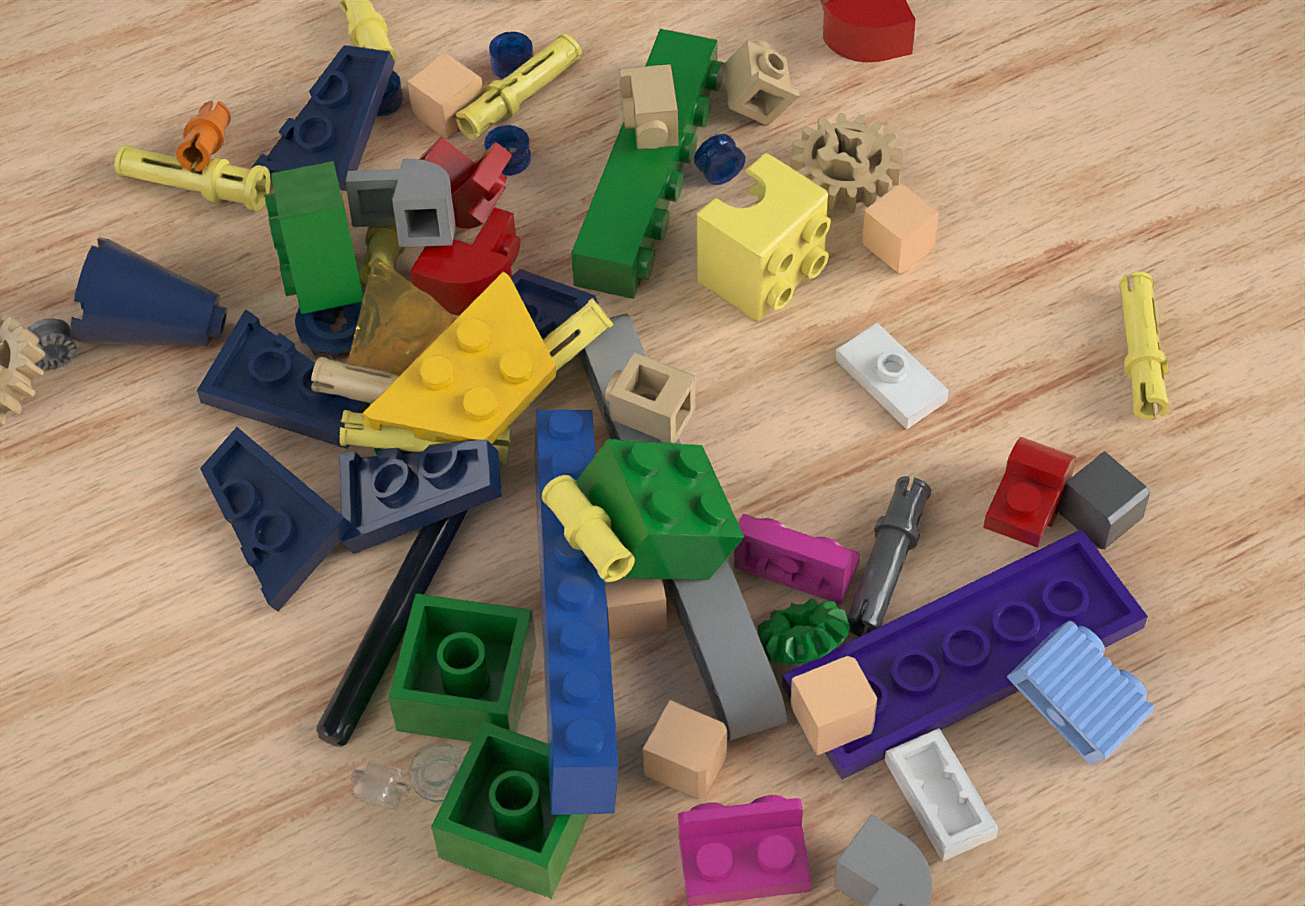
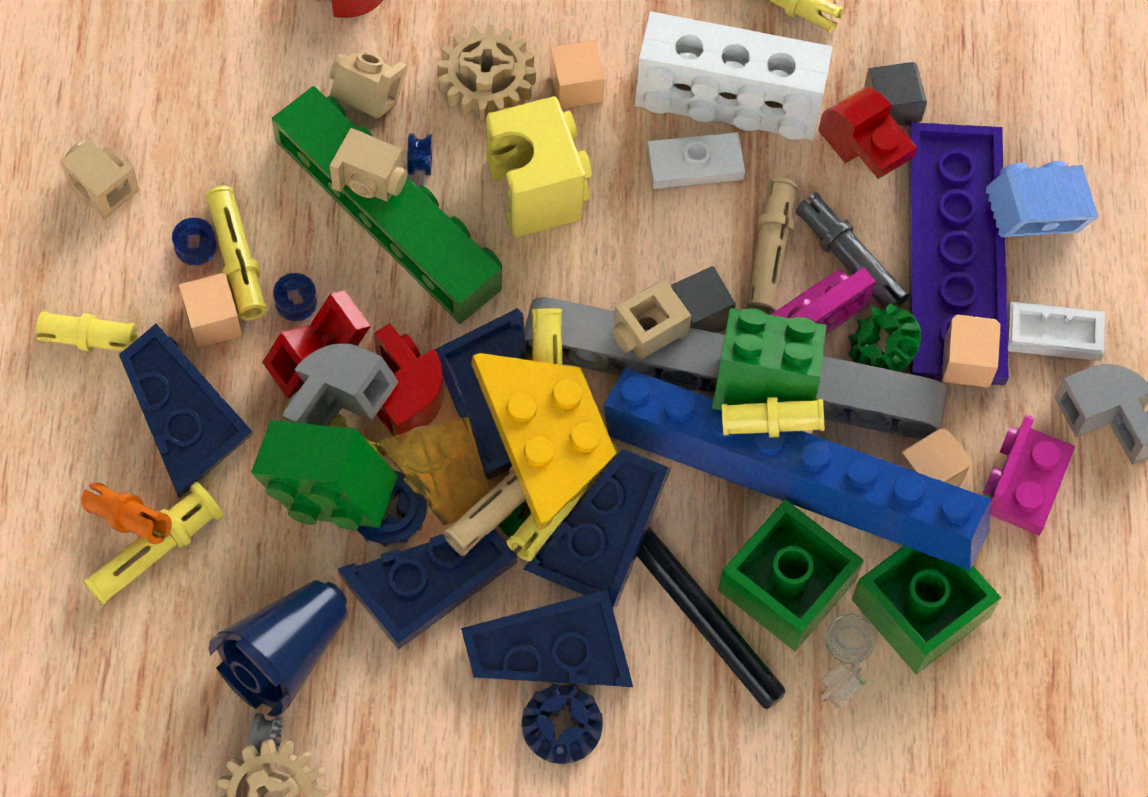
camera: 65 degrees left, 10 degrees up
(221, 573) = (574, 742): none -> dark blue gear
(730, 445) = (705, 299): none -> dark grey piece
(901, 461) = (774, 228): none -> tan pin
(993, 339) = (732, 61): none -> white brick

